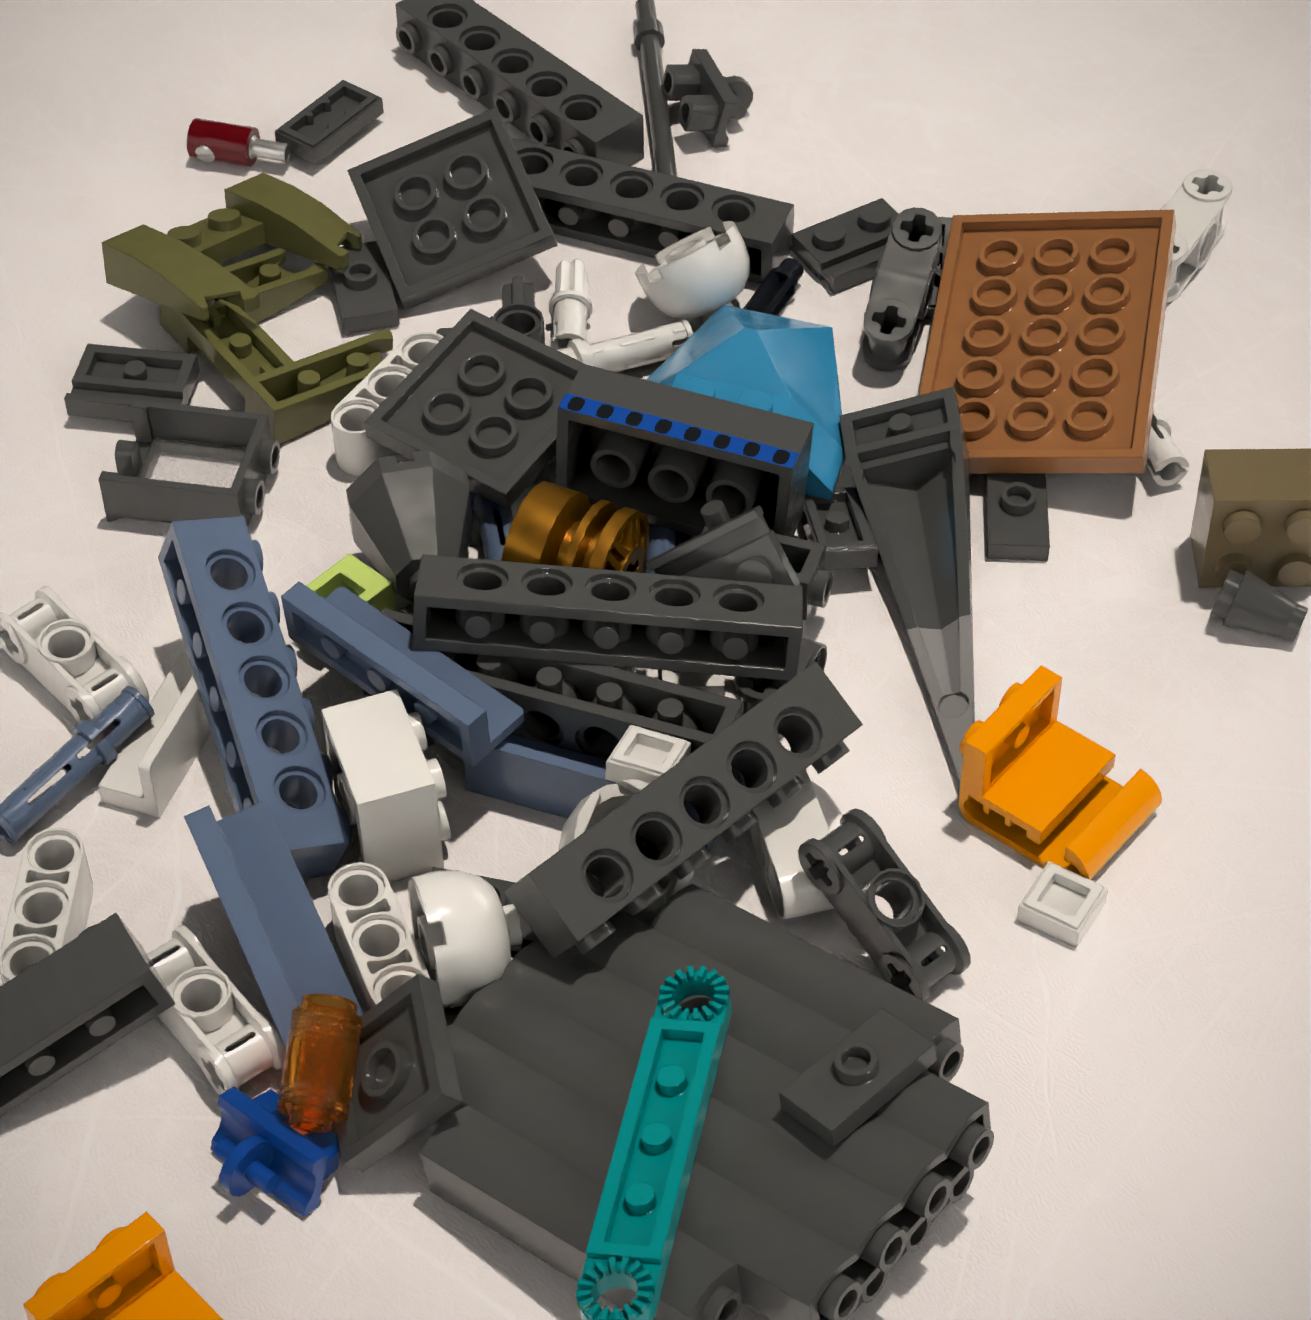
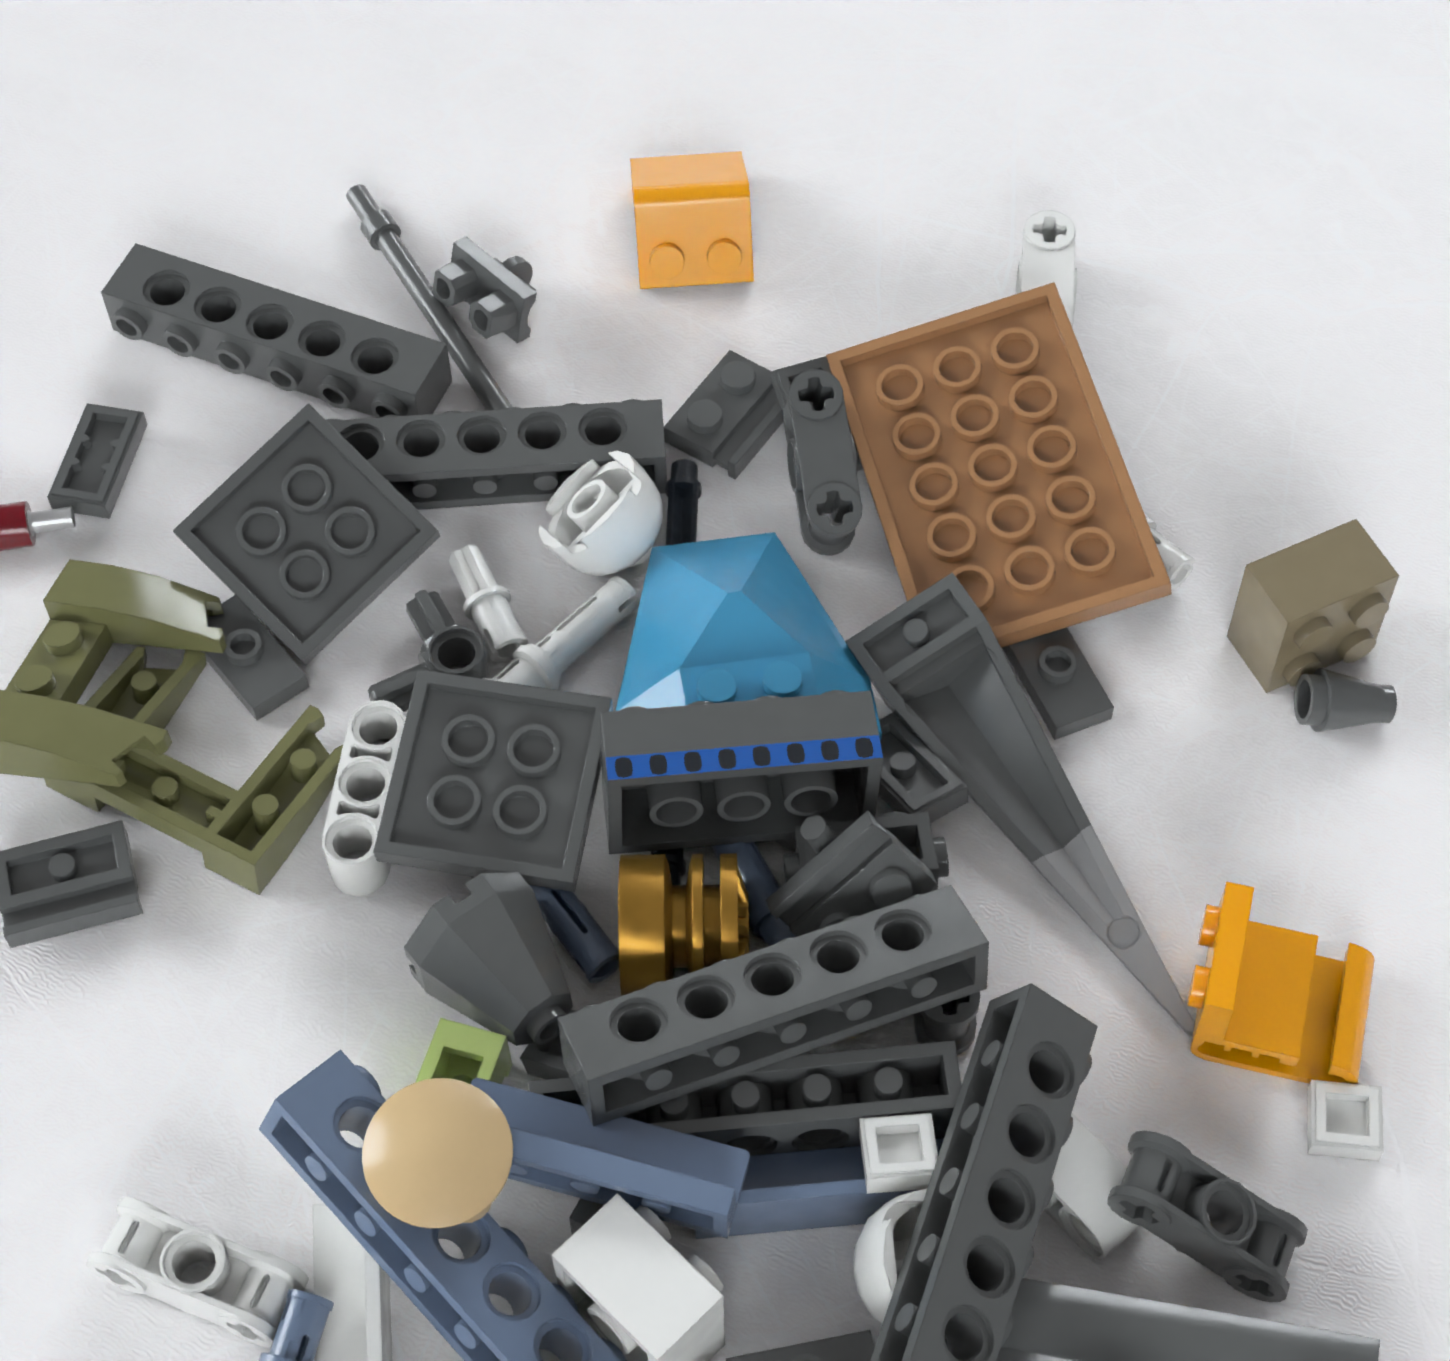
camera: 25 degrees left, 10 degrees up
(190, 464) = (193, 966): dark grey window -> none
(270, 601) = (437, 1153): none -> tan dish
(904, 97) = (692, 219): none -> light orange piece

